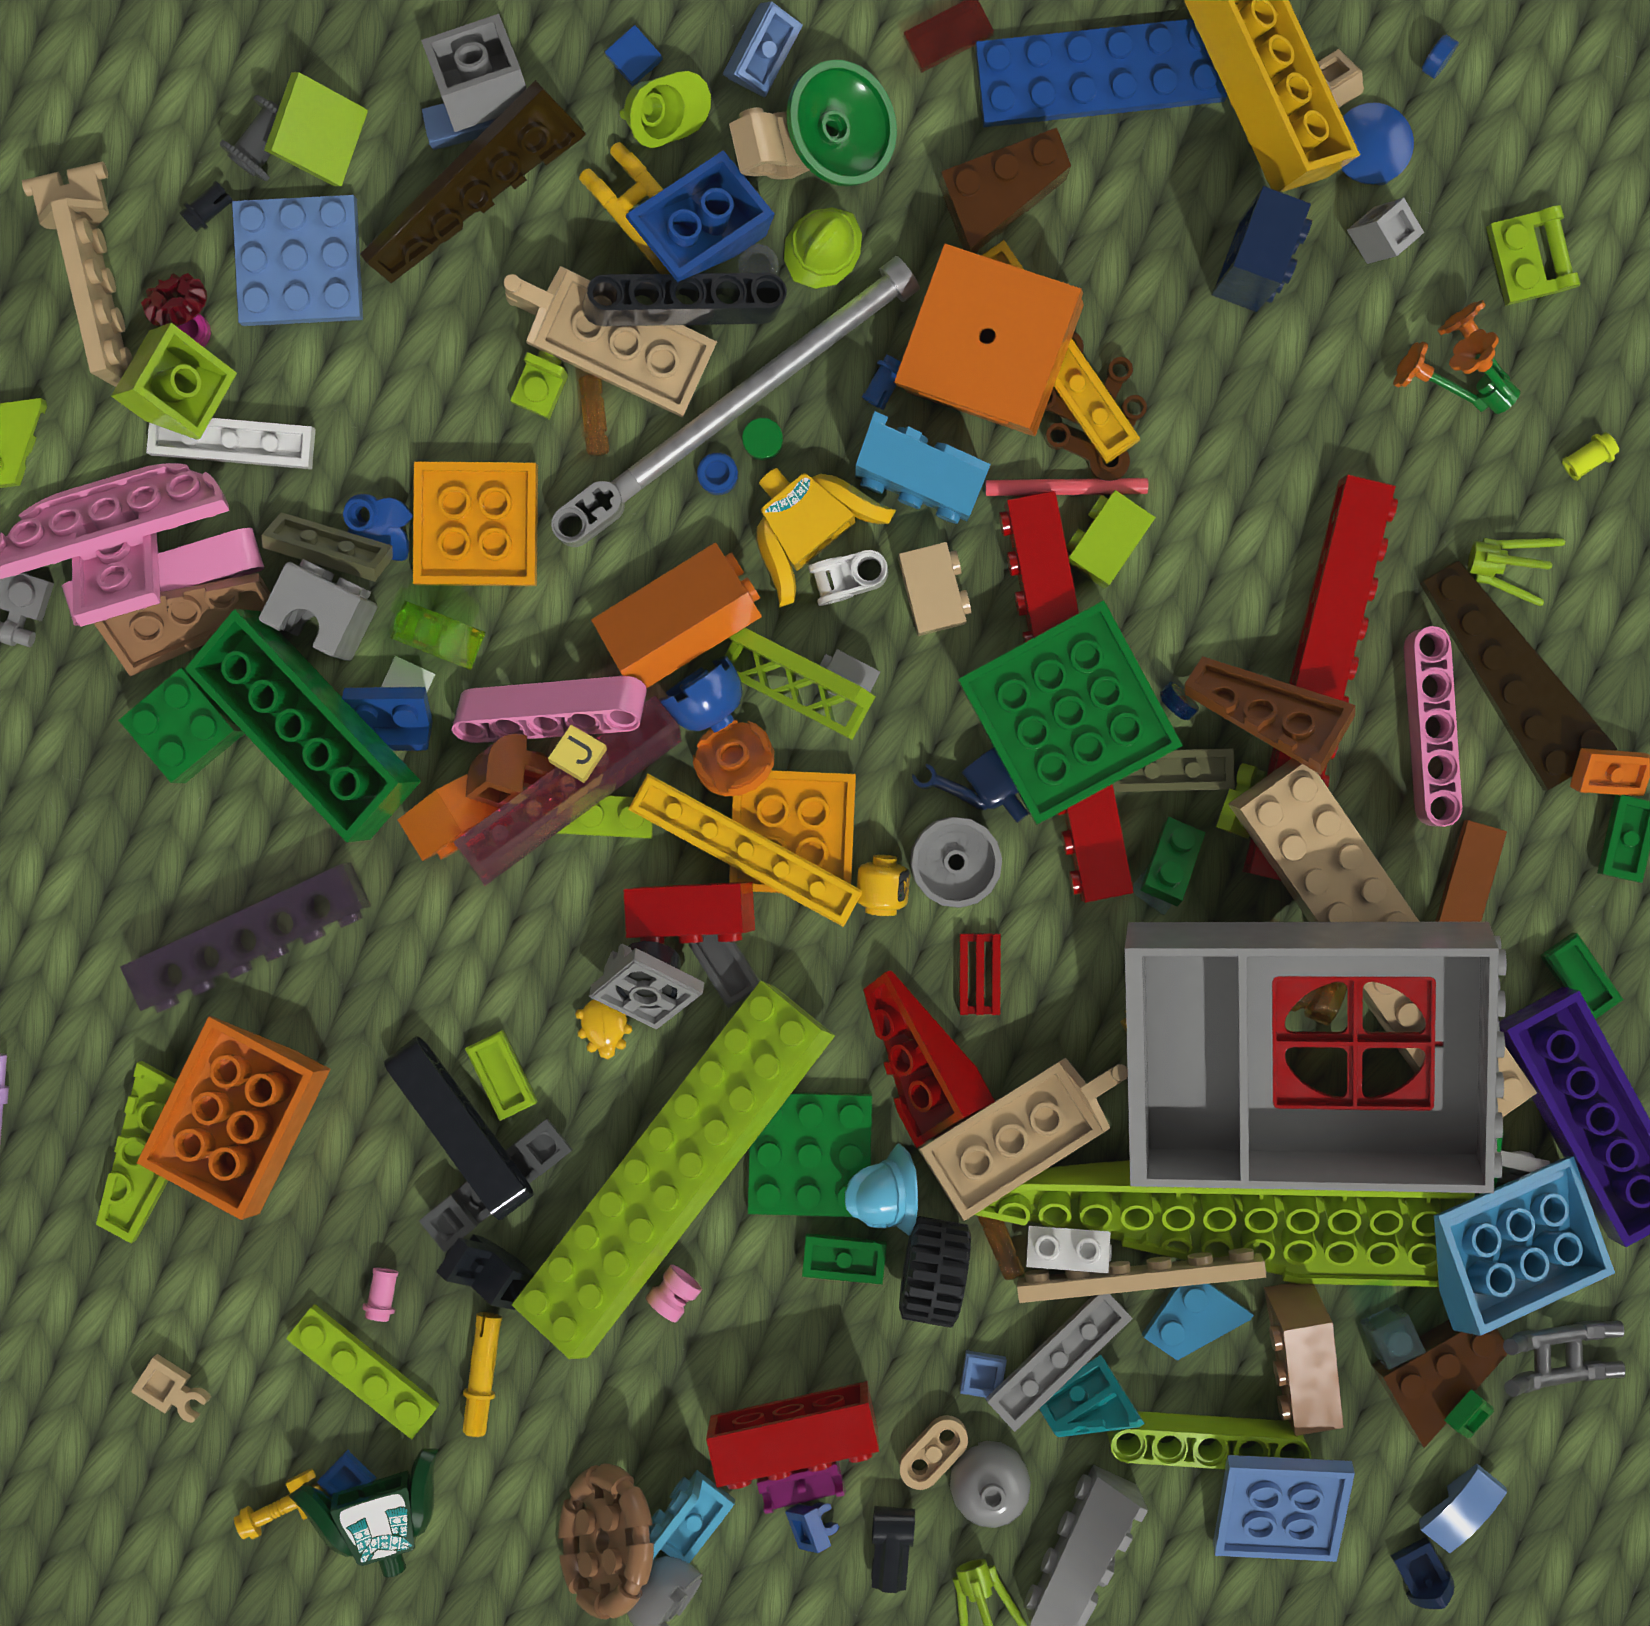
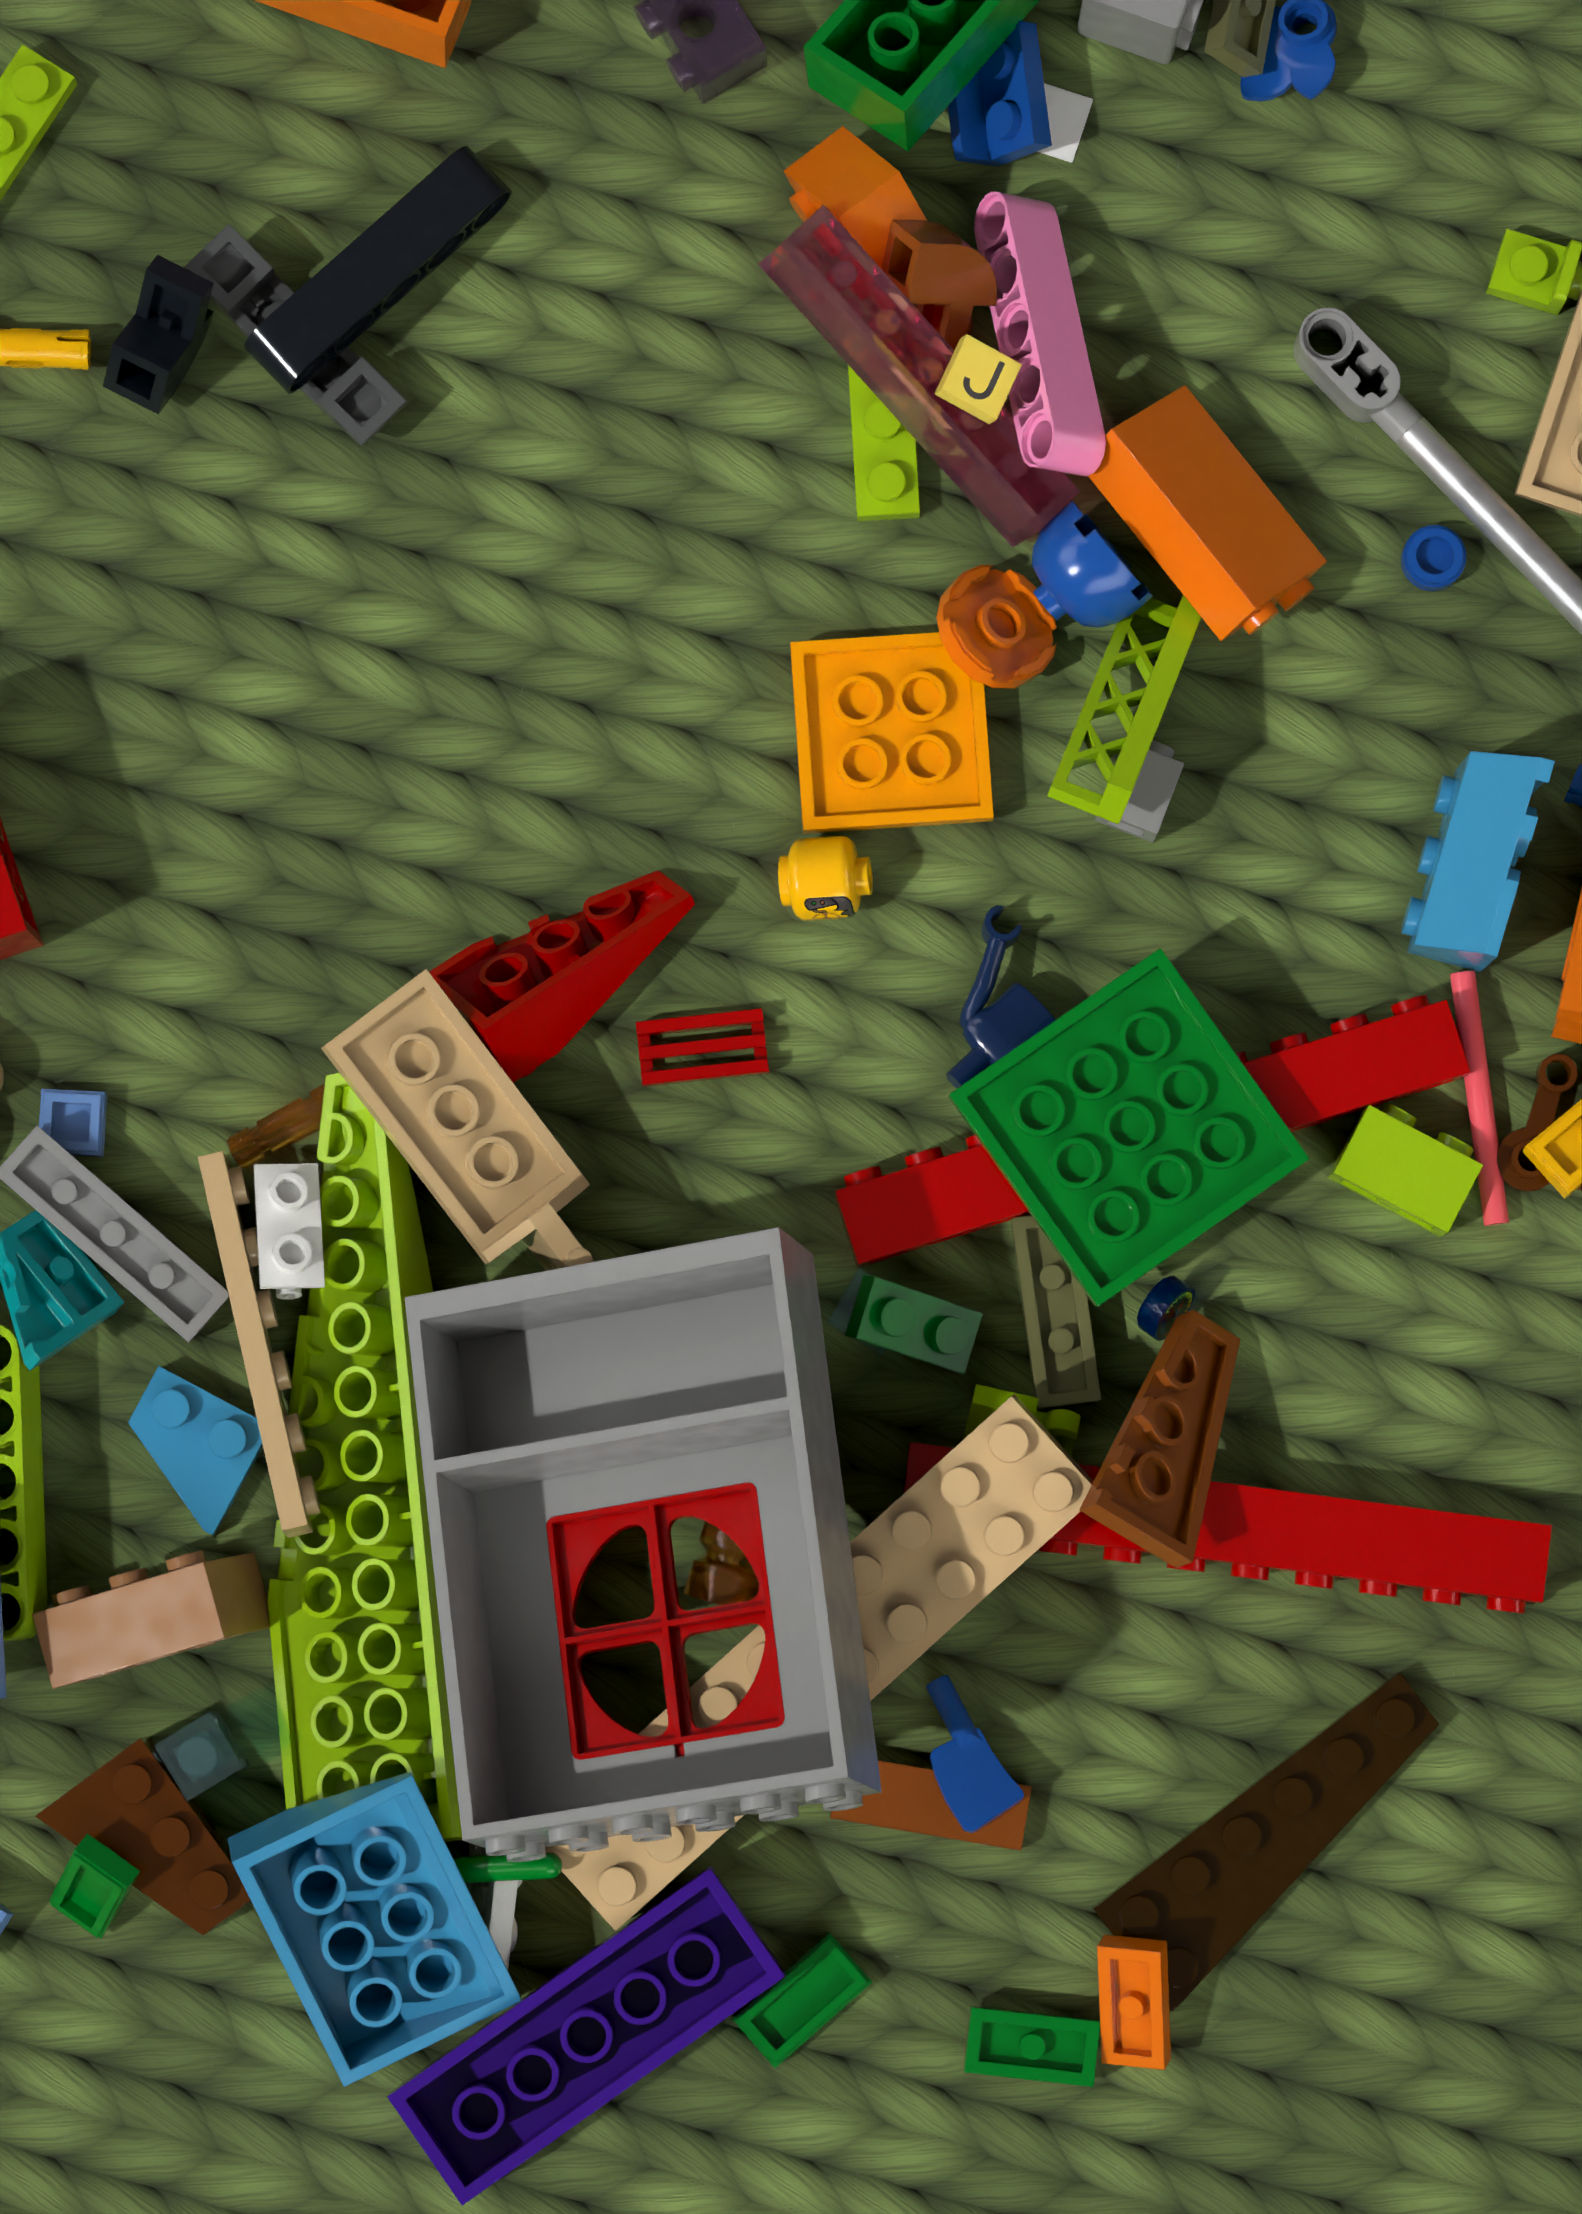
camera: 80 degrees right, 5 degrees down
(381, 1295) = (104, 181): bright pink pin -> none
(437, 635) = (1133, 156): clear neon green slope -> none
(475, 523) = (1310, 196): light orange plate -> none
(501, 1075) = (463, 328): lime tile -> none
(593, 415) = (1500, 358): clear orange axle -> none
(603, 1028) = (557, 477): yellow piece -> none
(647, 983) = (633, 528): light grey piece -> none
(672, 1171) = (348, 602): lime brick -> none
(673, 1293) = (153, 626): bright pink wheel -> none
(689, 911) = (751, 583): red brick -> none
(725, 968) = (675, 650): dark grey tile -> none
(745, 850) = (856, 659): yellow tile -> none
(762, 439) = (1495, 620): green tile -> none
(805, 520) = (1376, 697): yellow torso -> none
(810, 1154) = (391, 815): green plate -> none
(844, 1258) = (234, 884): green plate -> none
(846, 576) = (1297, 762): white piece -> none
(885, 1193) = (347, 927): medium azure piece -> none
(933, 588) = (1294, 906): tan brick -> none
(935, 1272) = (234, 1017): black tyre -> none
(975, 847) = (869, 1021): light grey wheel -> none
(1443, 708) = (1204, 1711): bright pink beam -> none
(1453, 859) = (966, 1767): none -> blue piece
(1488, 559) = (1447, 1775): lime plant -> none
(1575, 1368) = (179, 2055): flat silver piece -> none

